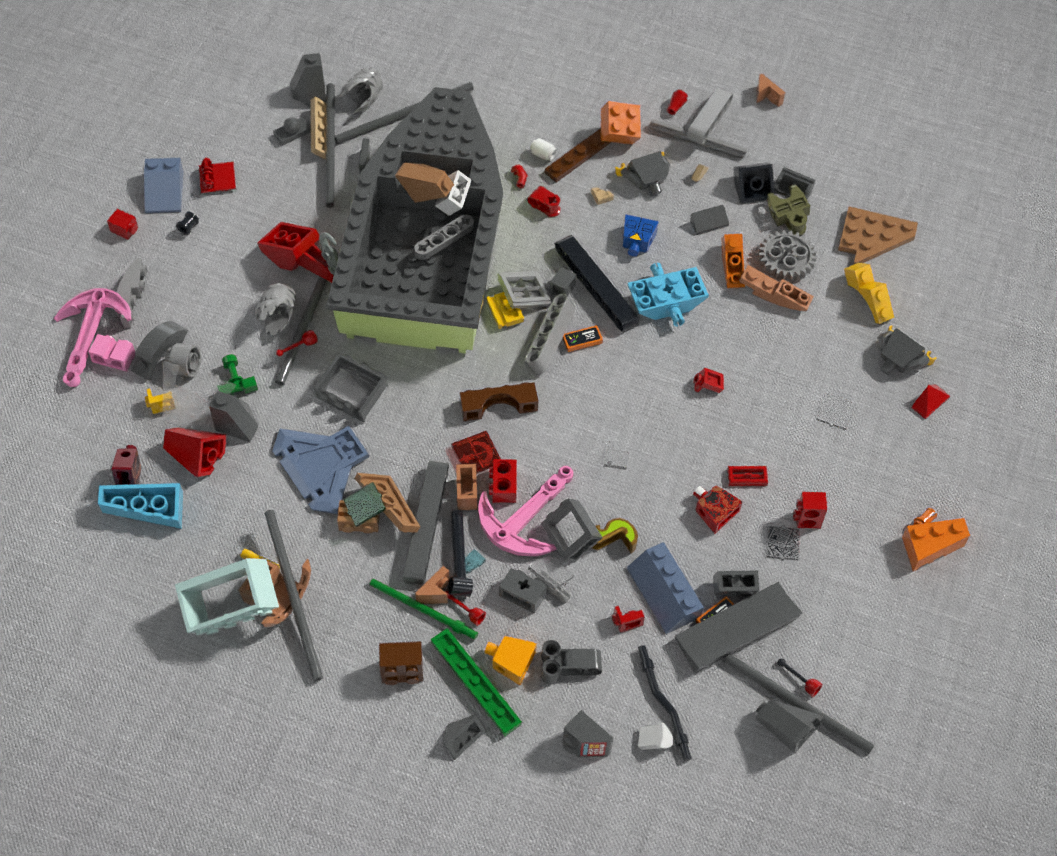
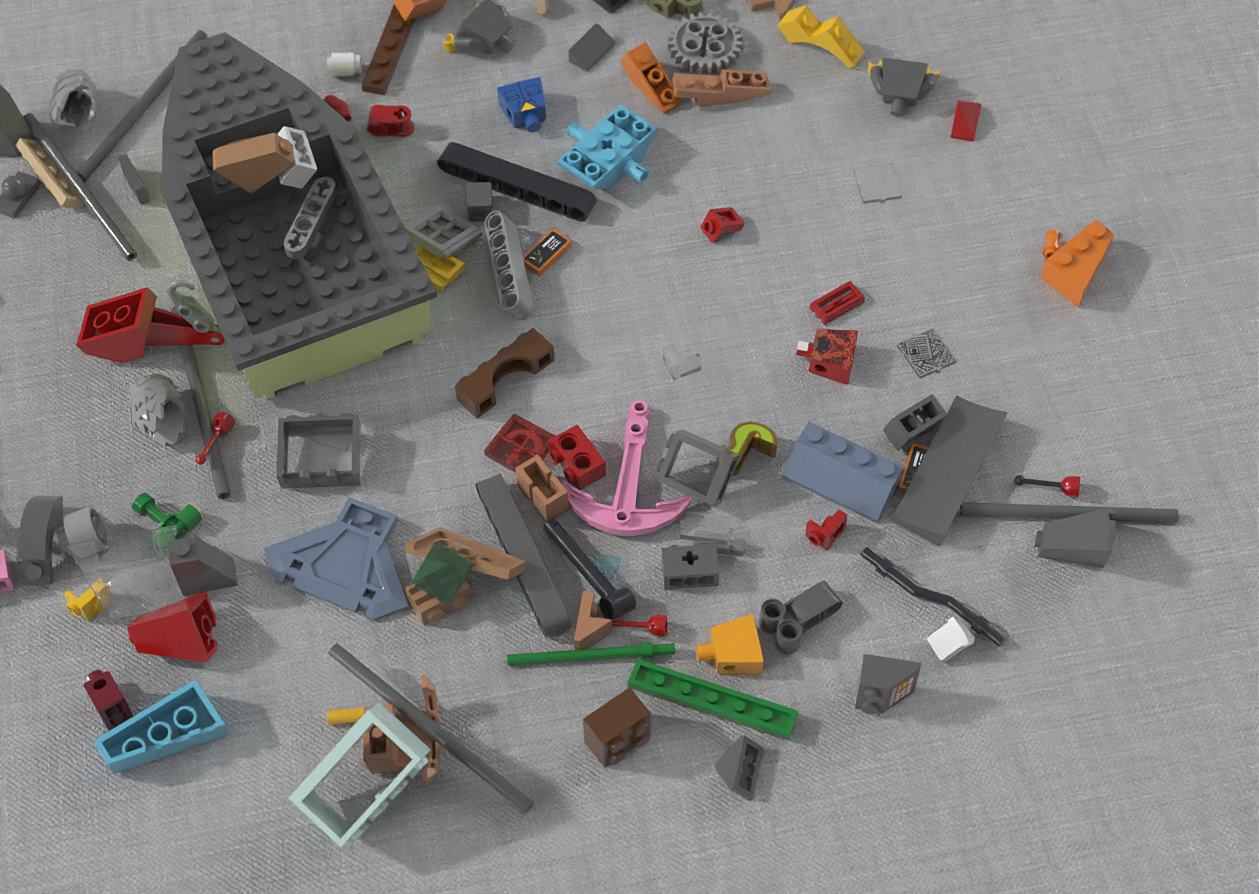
camera: 30 degrees left, 0 degrees up
(601, 196) = (448, 83): tan tile -> none
(810, 510) = (936, 299): red brick -> none

